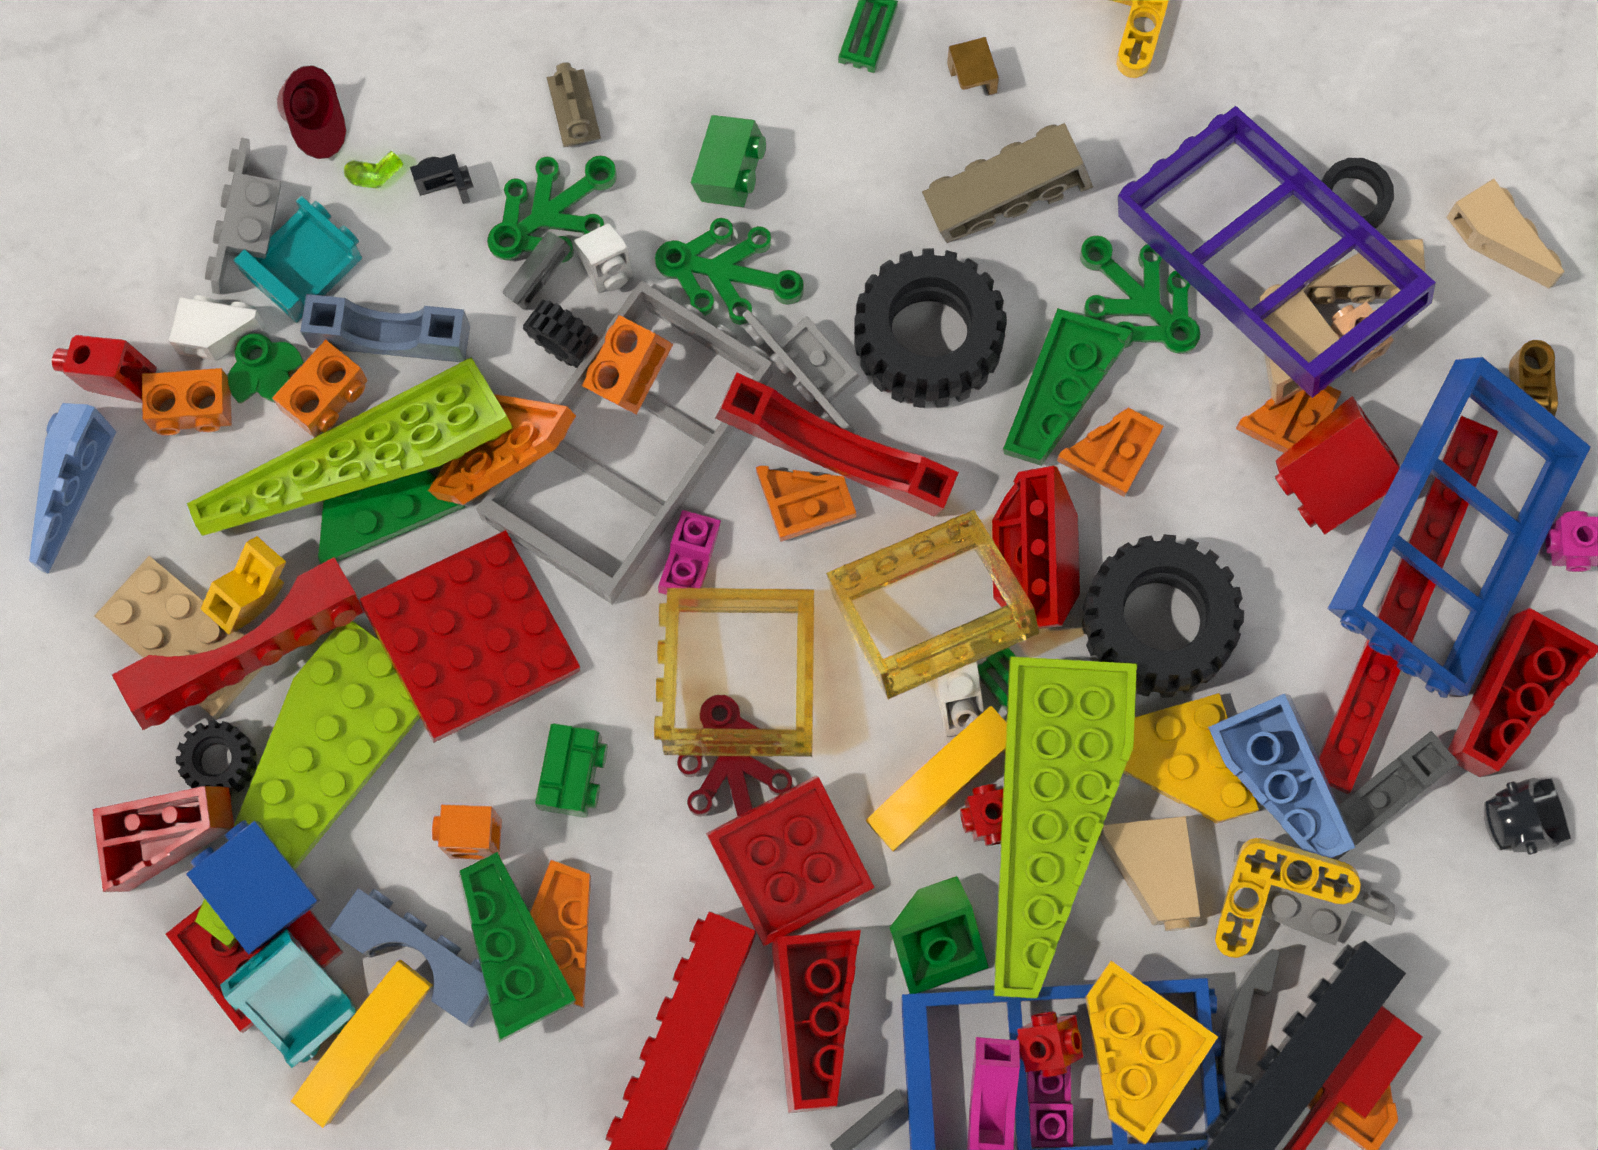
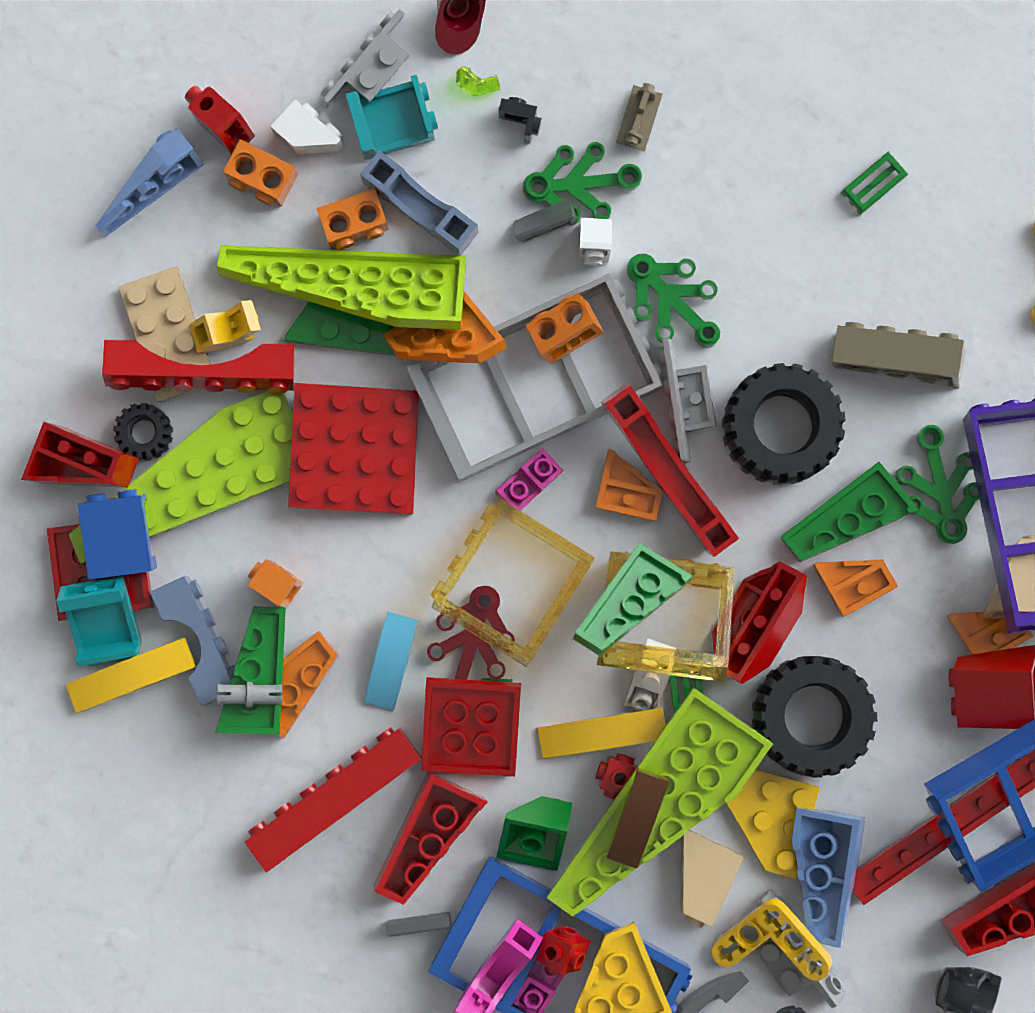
camera: 30 degrees right, 10 degrees up
(263, 374) = (323, 185): green plate -> none
(513, 971) = (249, 694): none -> light grey pin
(560, 333) = (533, 278): black tyre -> none
(570, 771) = (365, 580): green brick -> none
(654, 843) = (391, 660): none -> medium azure slope
(728, 161) = (720, 222): green brick -> none
(879, 602) = (632, 596): none -> wing
(973, 65) = (930, 254): pearl gold panel -> none
(1040, 836) = (638, 818): none -> reddish brown slope
(1395, 786) = (894, 919): dark grey slope -> none

